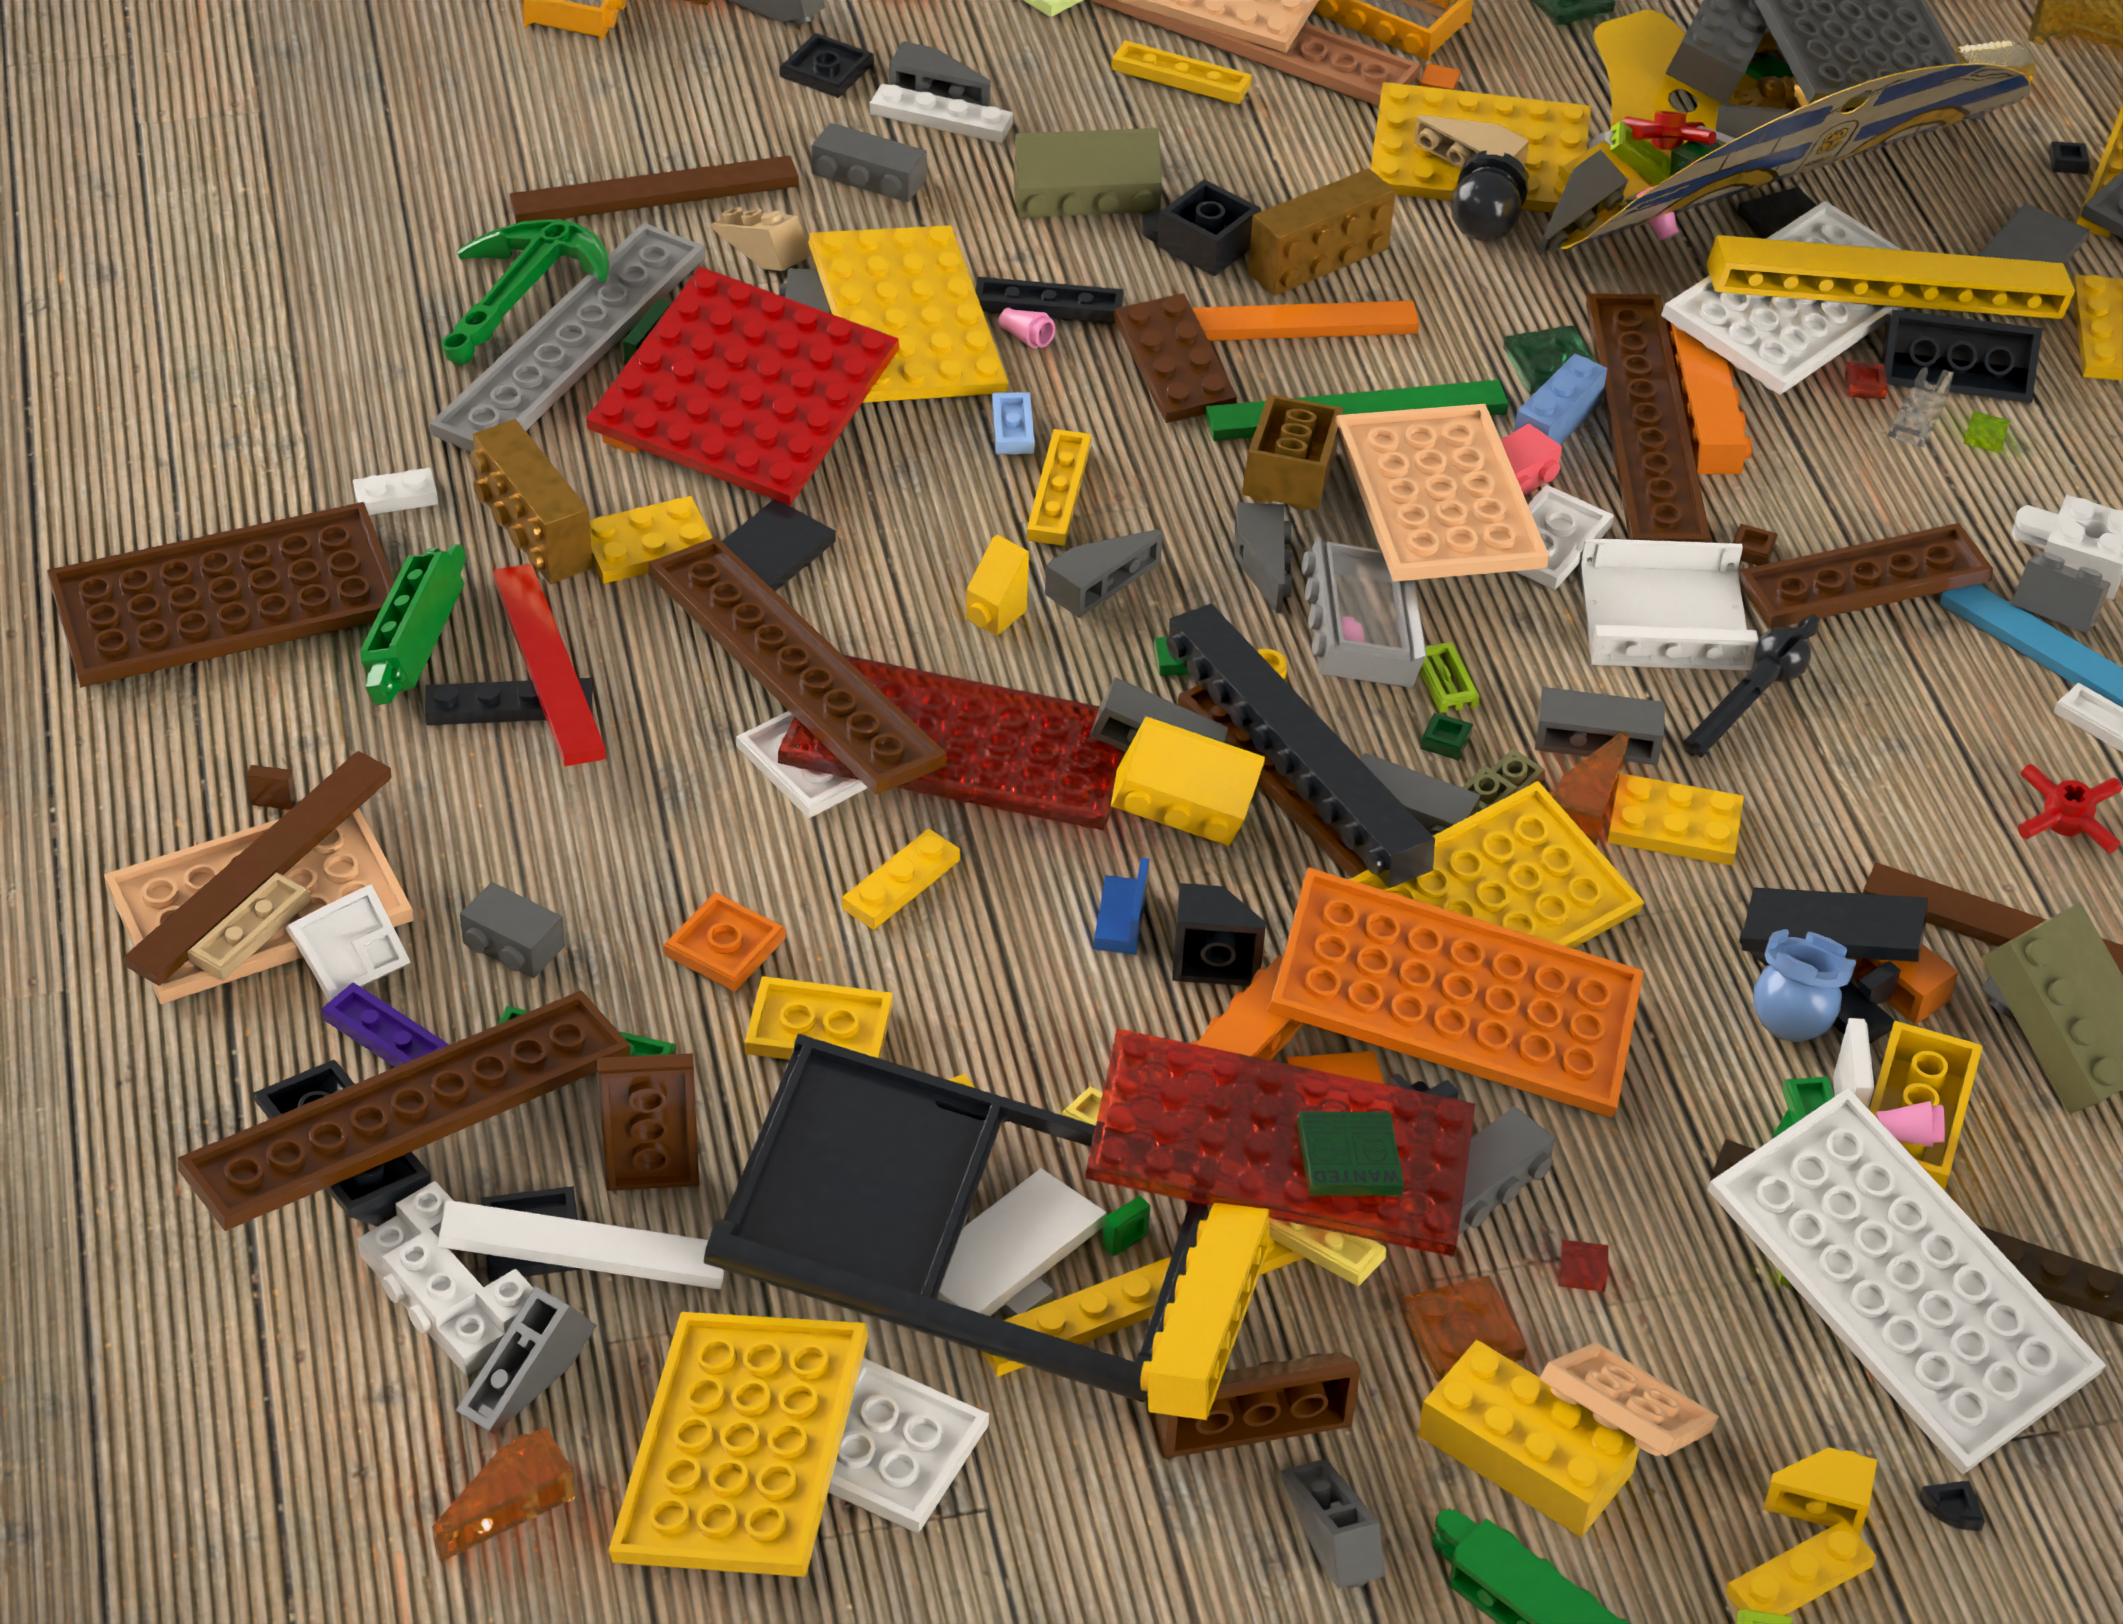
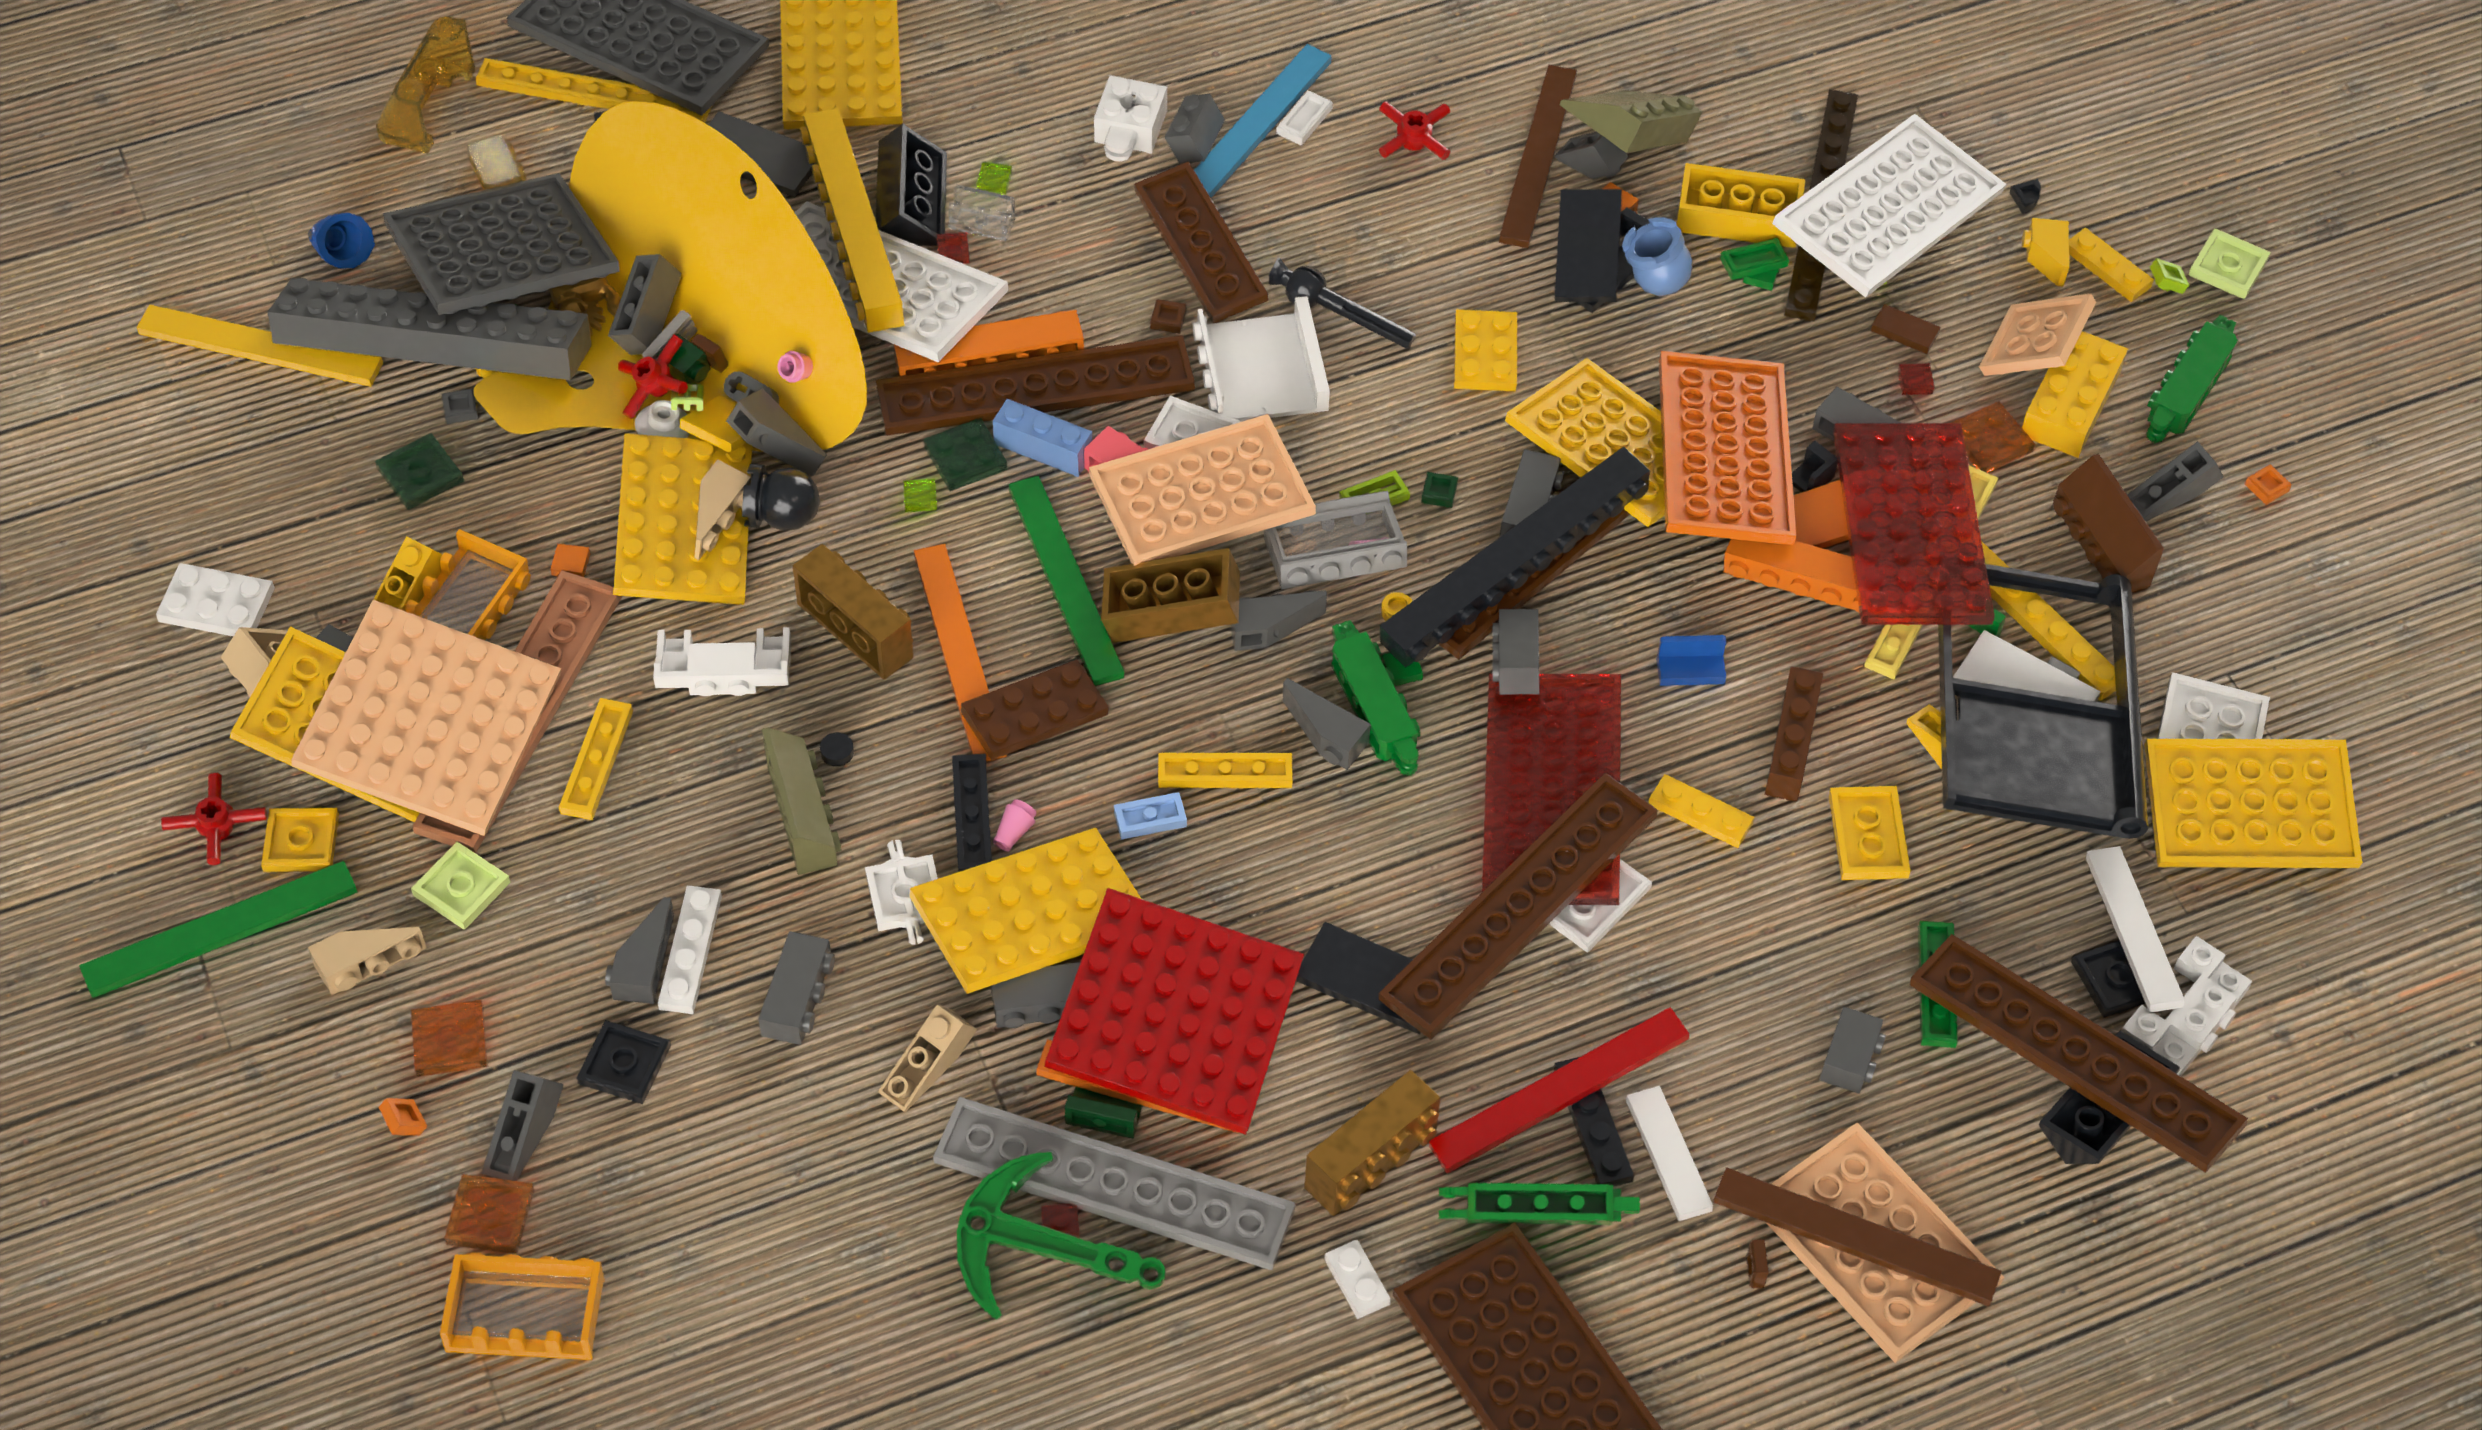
camera: 100 degrees left, 10 degrees up
(249, 926) = (1922, 1223): tan tile -> none
(349, 942) = (1912, 1155): white plate -> none
(379, 1026) = (1979, 1112): dark purple plate -> none
(452, 752) = (1669, 1153): none -> white tile
(509, 1490) = (2340, 931): clear orange slope -> none
(527, 1360) = (2240, 942): dark grey slope -> none
(539, 301) = (1061, 1218): none -> clear red plate
(631, 539) = (1359, 1057): yellow plate -> none
(649, 1121) = (2053, 879): reddish brown tile -> none
(654, 189) = (863, 1171): reddish brown tile -> none
(724, 941) = (1809, 909): orange plate -> none
(980, 241) = (891, 886): none -> white plate
(985, 976) = (1794, 734): none -> reddish brown brick
(998, 586) = (1381, 784): yellow slope -> none
(1121, 614) = (1374, 697): none -> green hinge
(1187, 781) = (1581, 625): yellow slope -> none
(1206, 1311) = (2082, 537): yellow brick -> none
(1207, 227) = (855, 698): black brick -> none
(1216, 937) = (1720, 595): black slope -> none
(1270, 145) = (722, 666): none -> white bracket
(1350, 1154) = (1925, 474): dark green tile -> none
(1494, 319) = (920, 495): none -> clear neon green tile
(1505, 778) = (1488, 455): olive slope -> none
(1586, 721) = (1409, 393): dark grey brick -> none
(1590, 786) = (1478, 393): clear orange slope -> none
(1681, 1277) = (1905, 329): none -> reddish brown tile
(1854, 1062) = (1728, 231): white tile -> none
(1915, 1123) = (1780, 187): bright pink cone -> none

